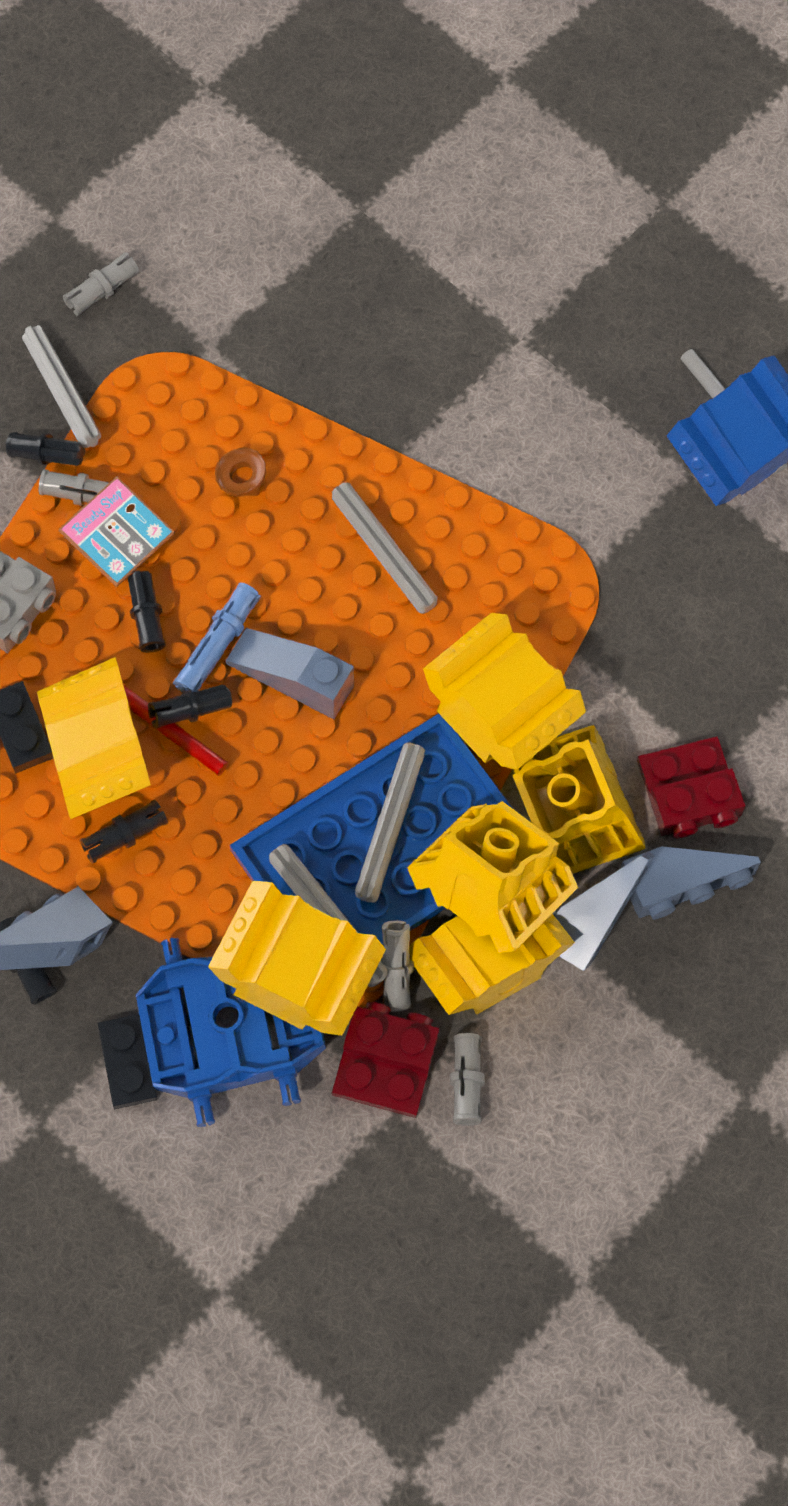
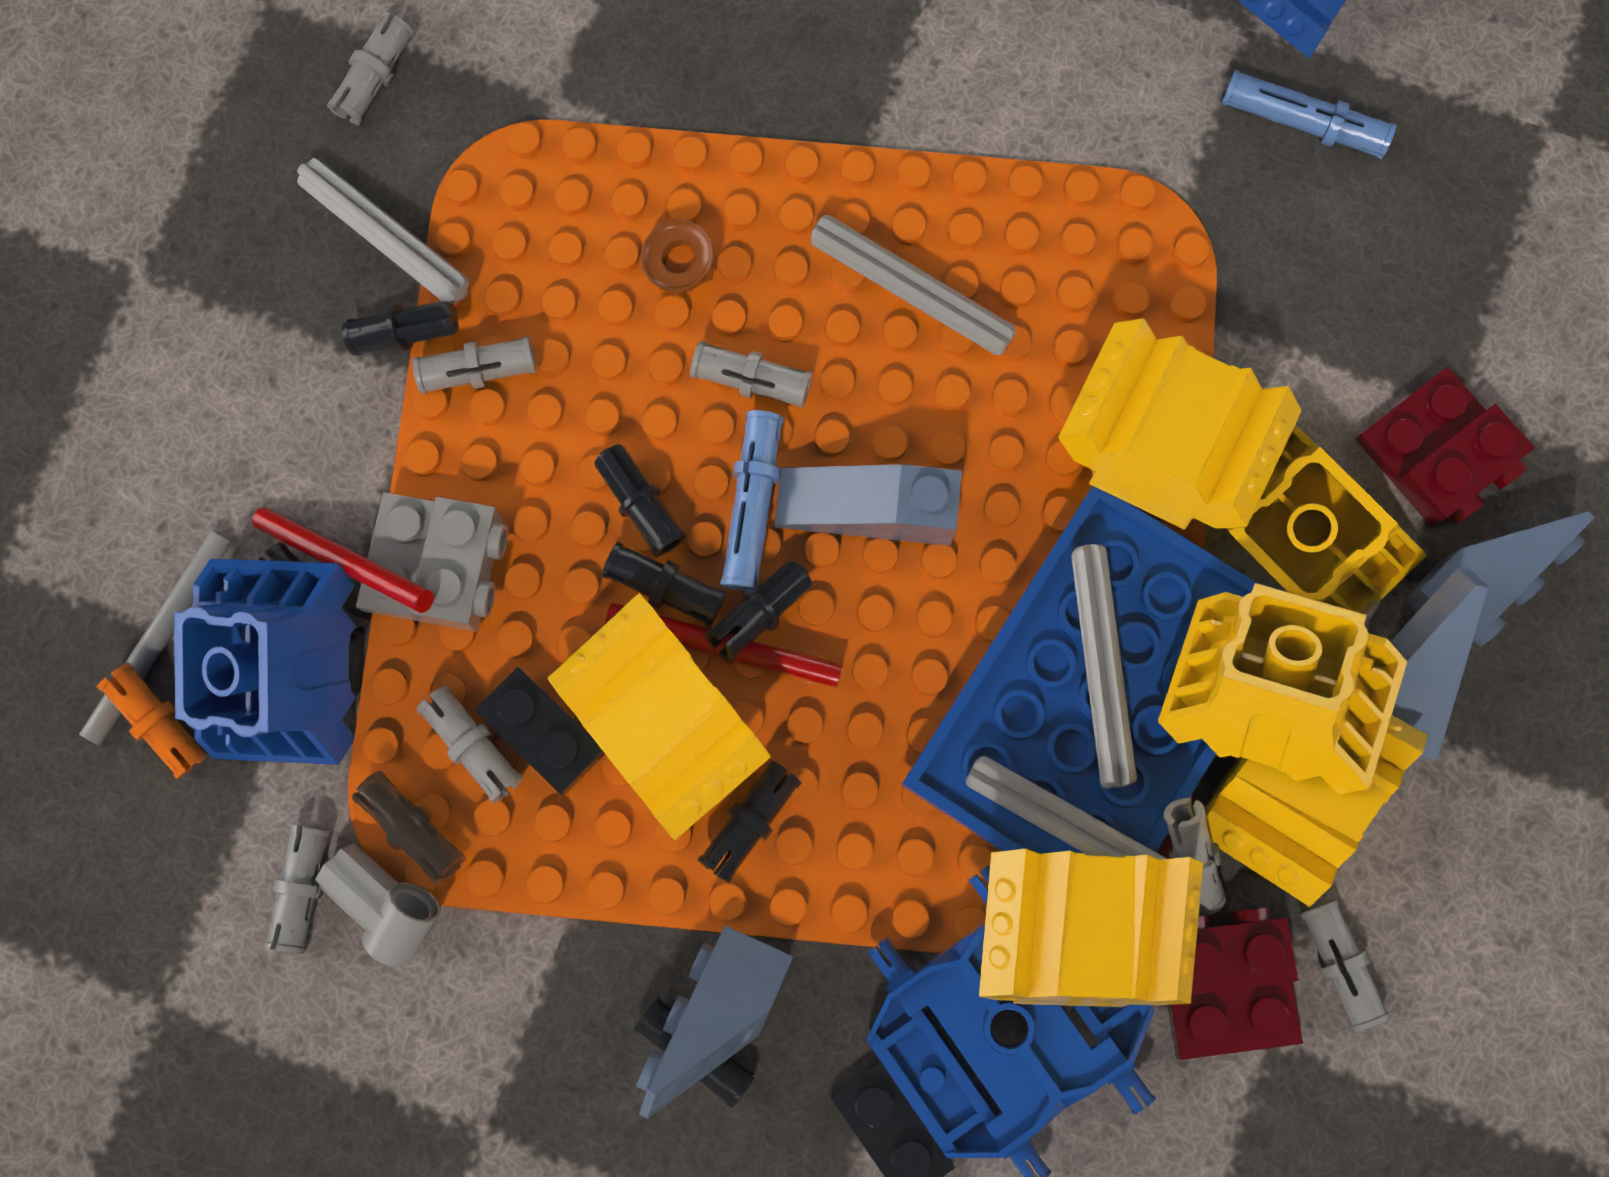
camera: 20 degrees left, 10 degrees up
(116, 531) = (551, 406): piece -> none
(137, 666) = (663, 584): none -> black pin
(253, 562) = (751, 374): none -> light grey pin
(713, 552) = (1309, 114): none -> medium blue pin

